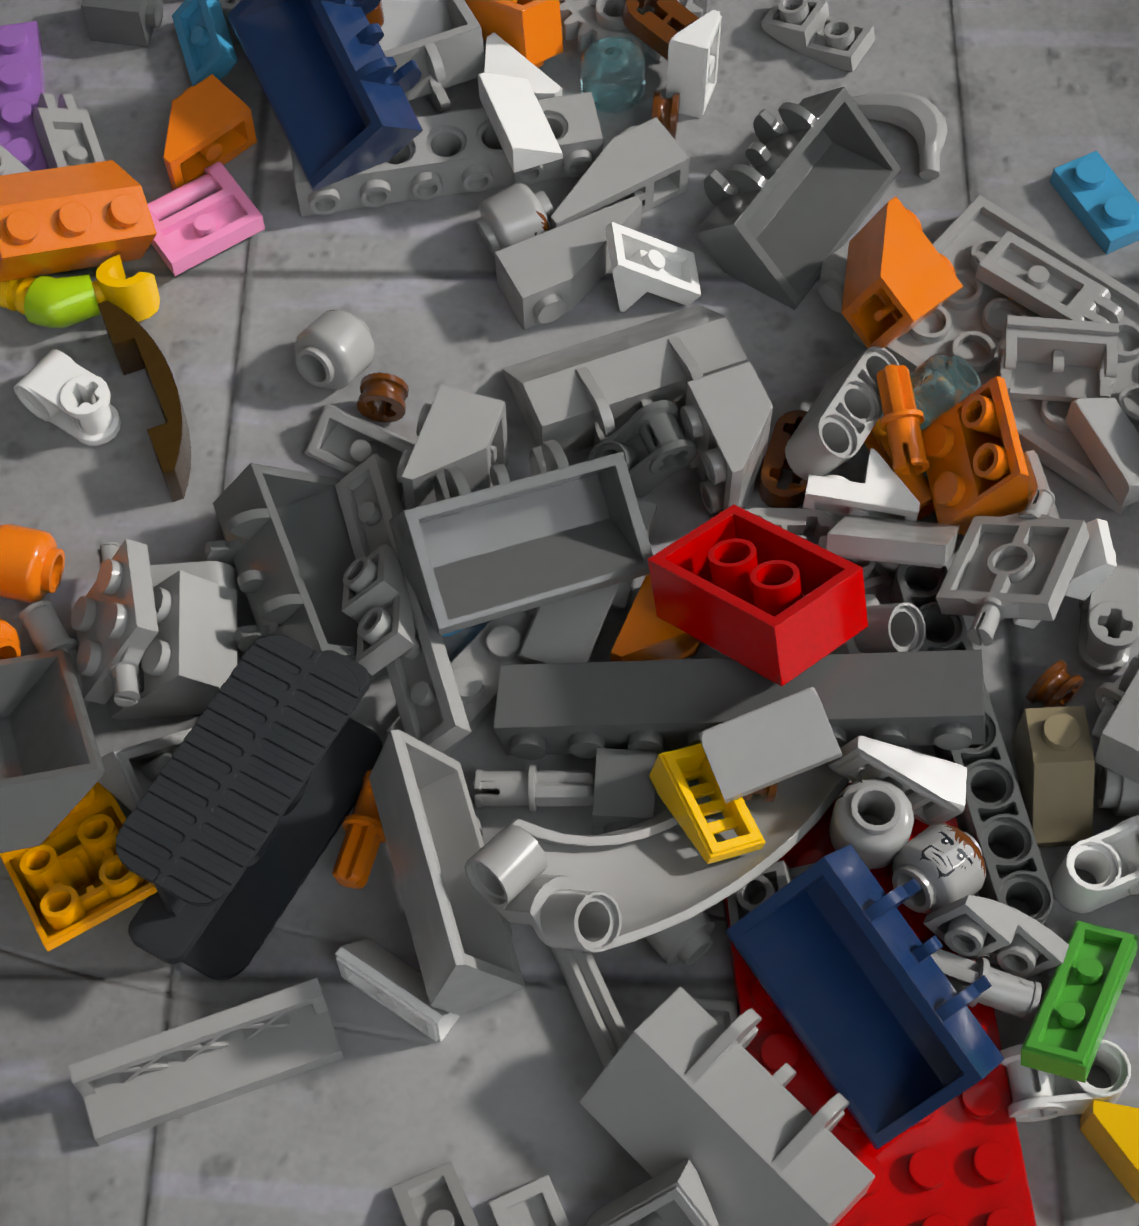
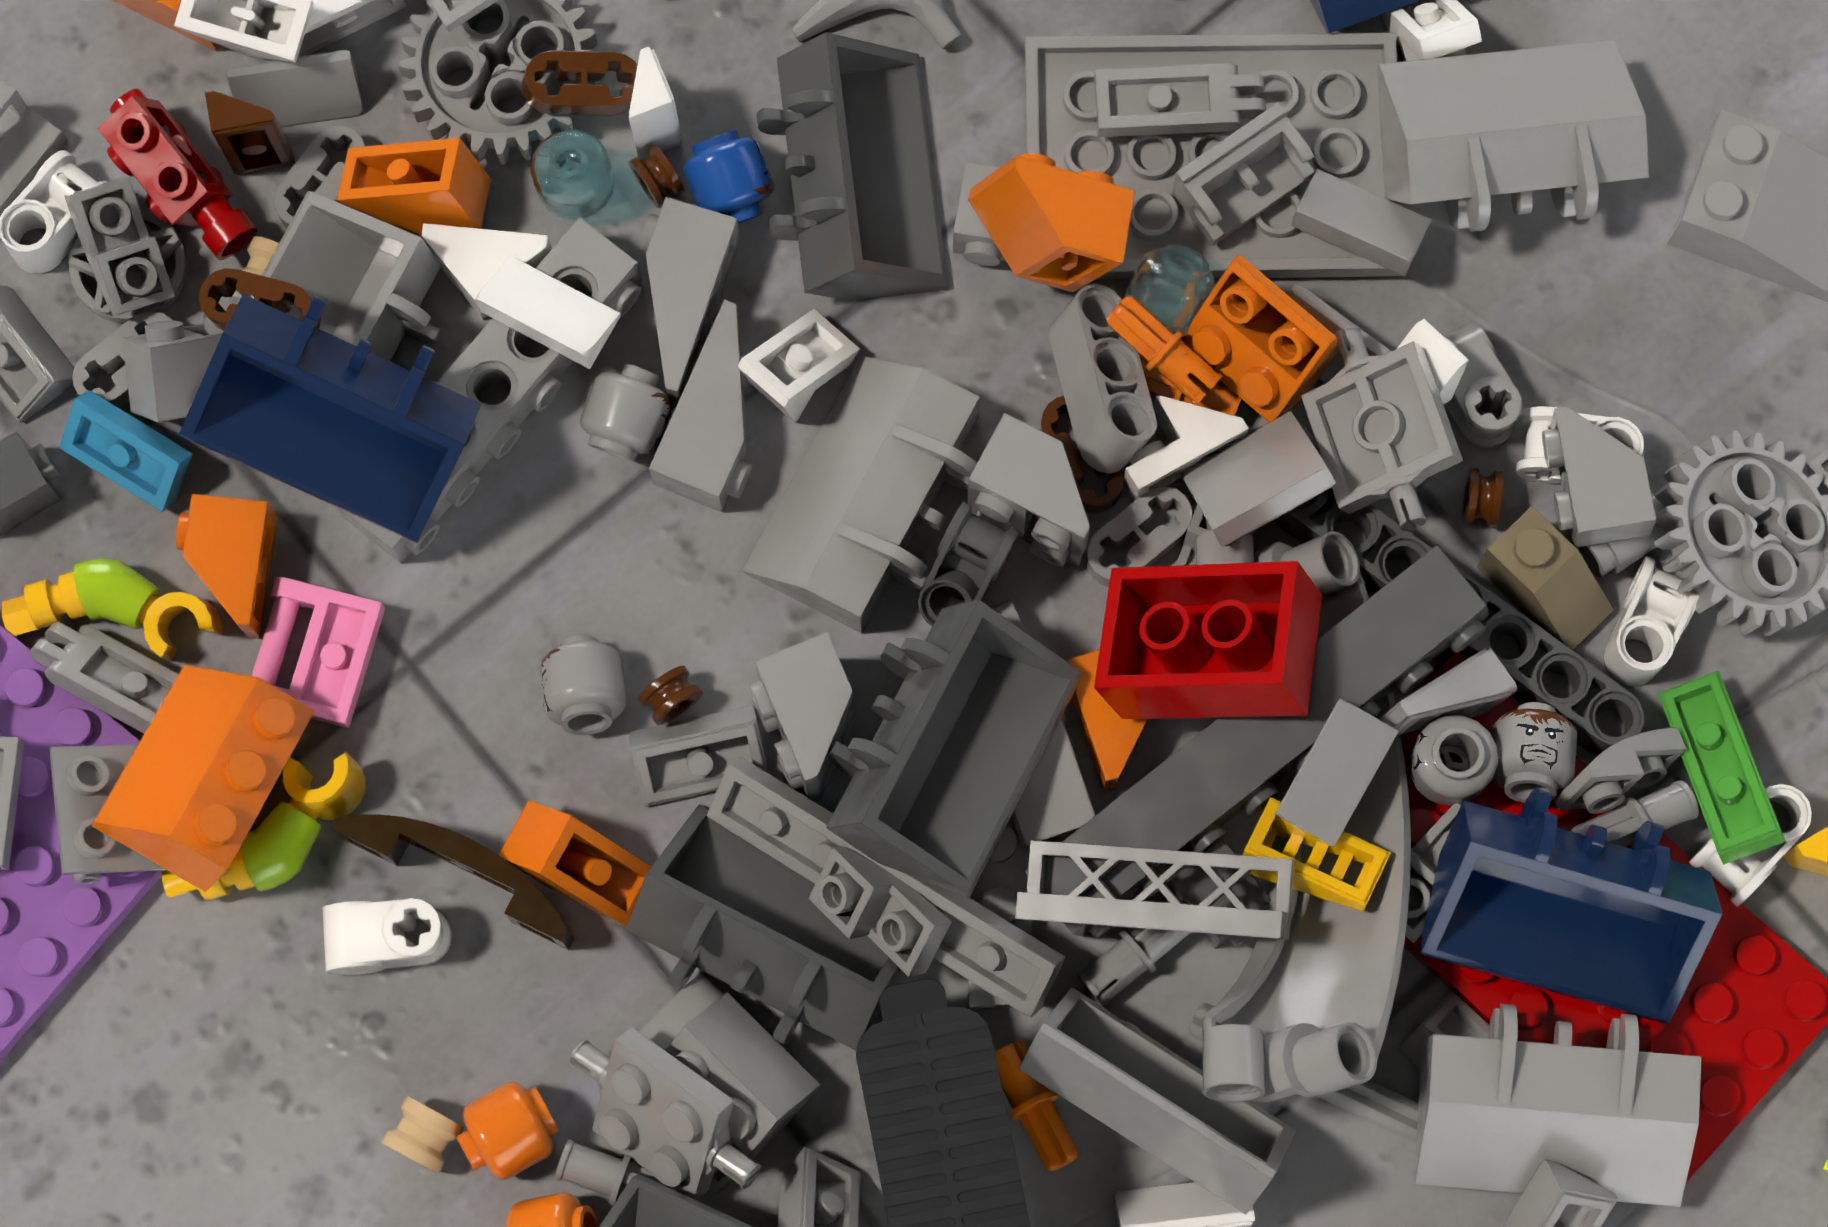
camera: 40 degrees left, 15 degrees up
(119, 104) = (111, 592): none -> piece
(221, 435) = (575, 861): none -> orange slope
(565, 746) = (1157, 915): none -> light grey fence
(711, 140) = (729, 176): none -> blue head

